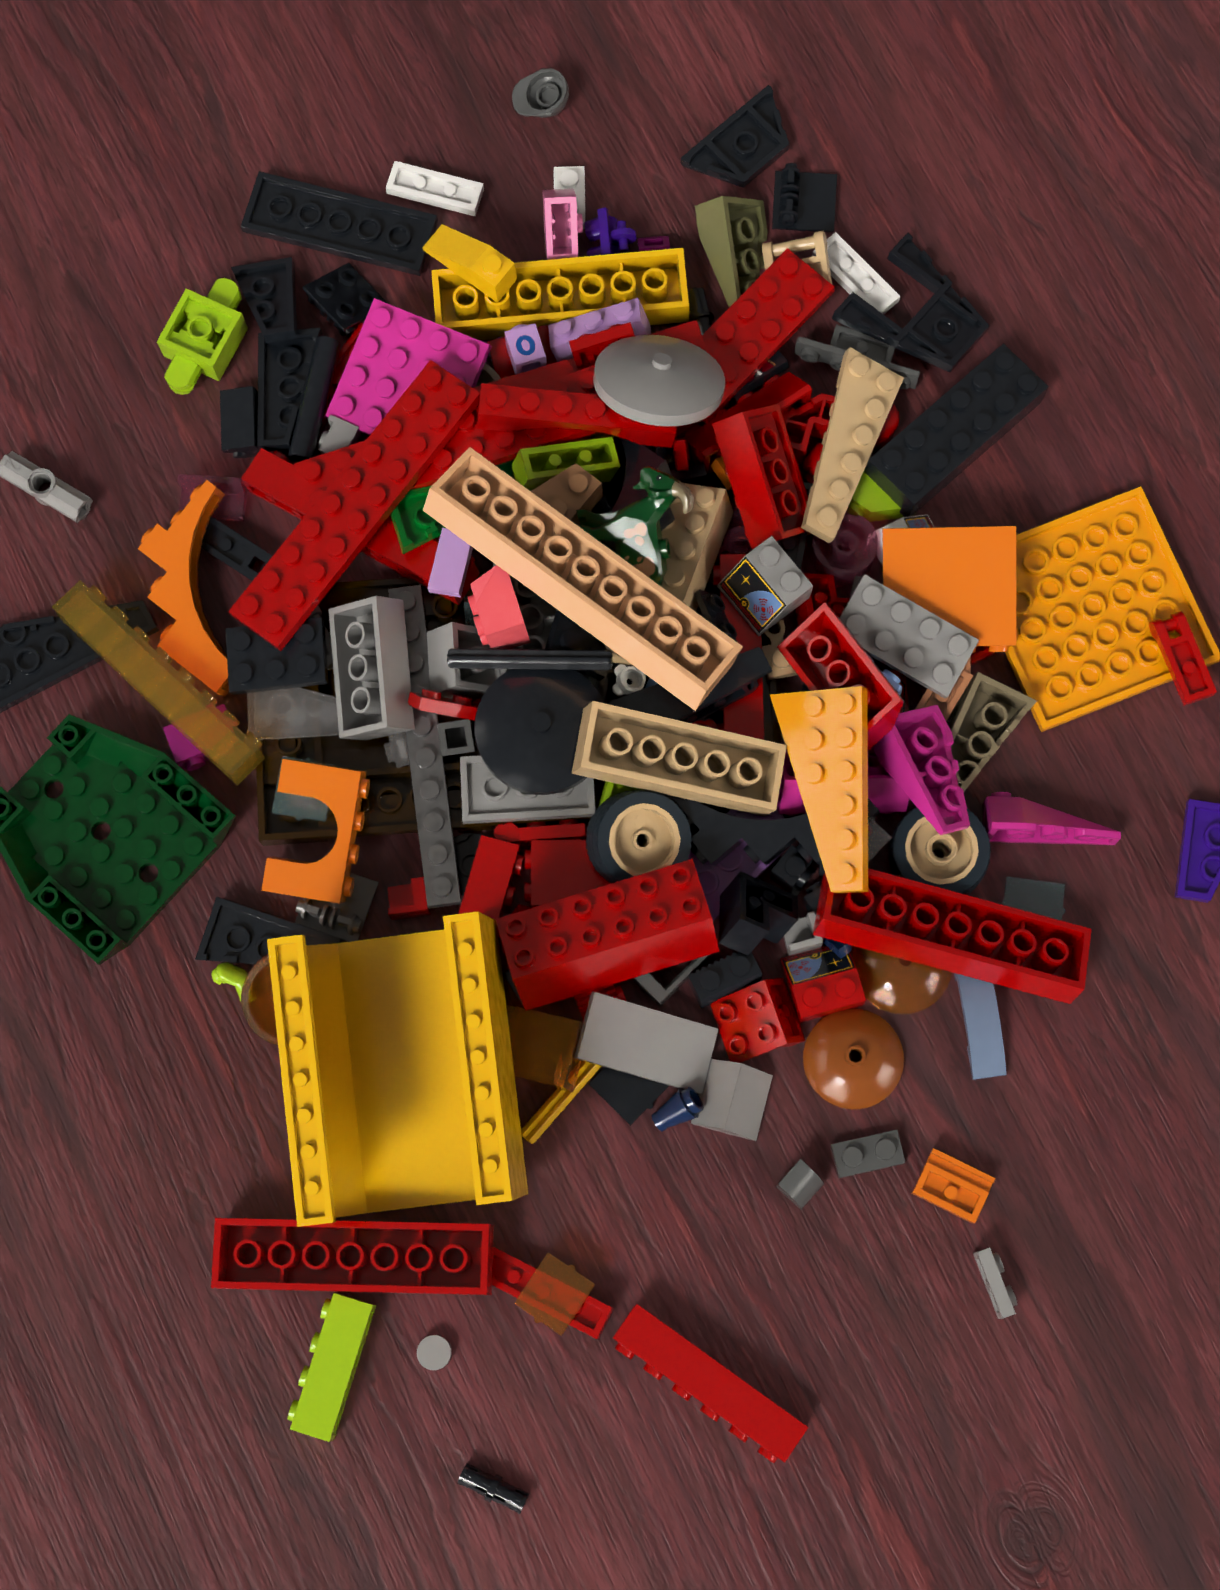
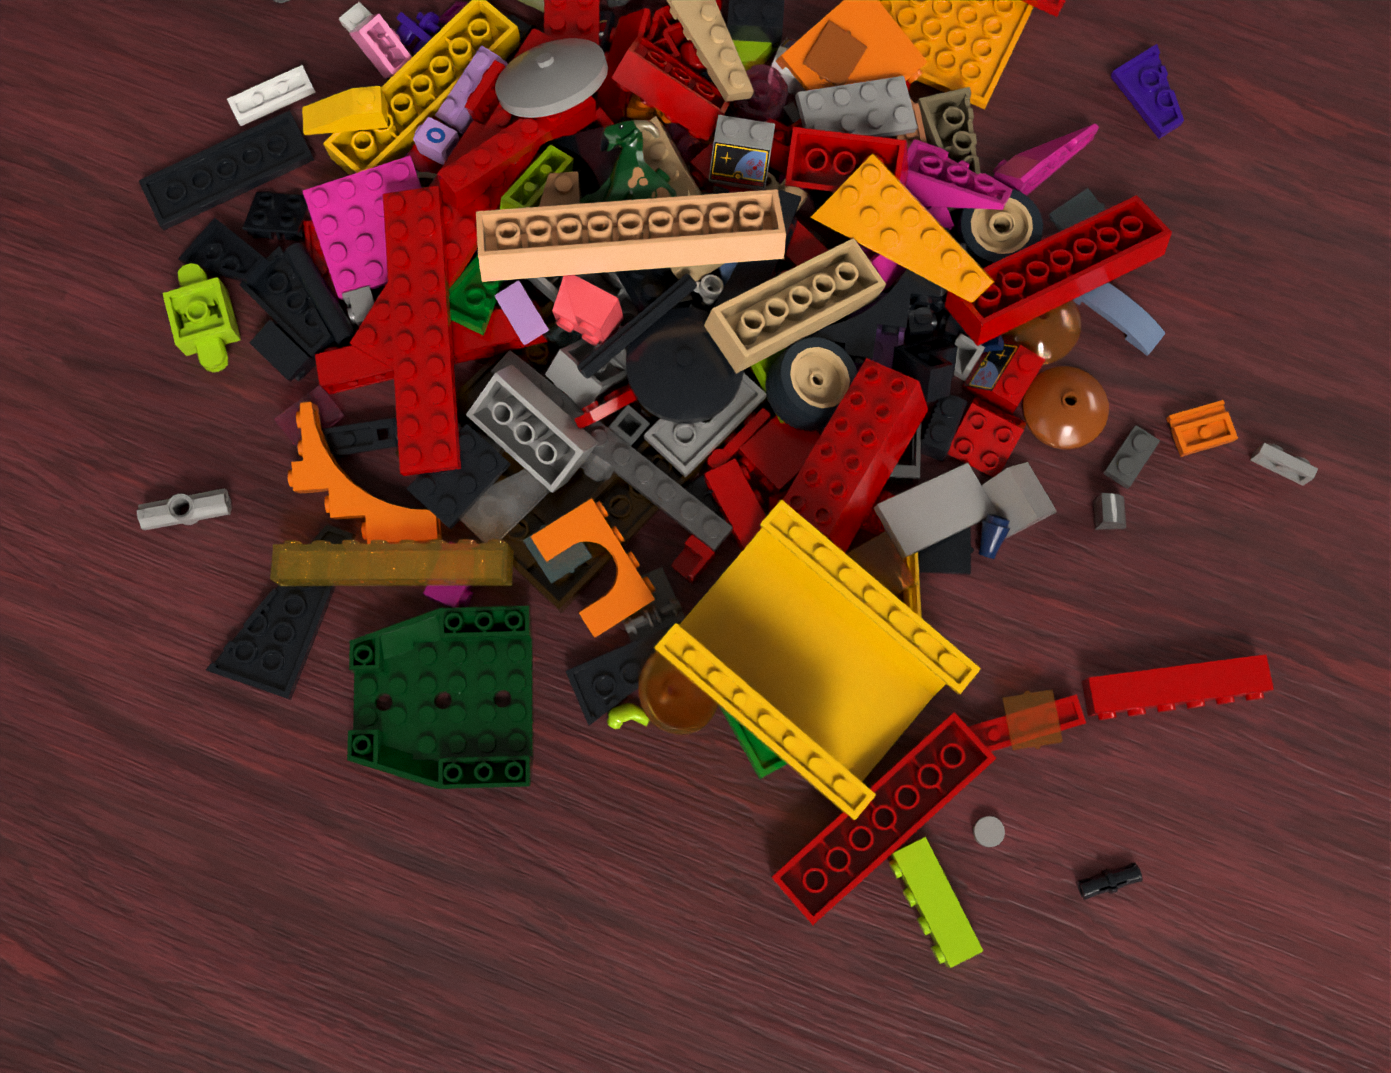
camera: 45 degrees left, 0 degrees up
(932, 569) = (834, 54): none -> dark orange piece

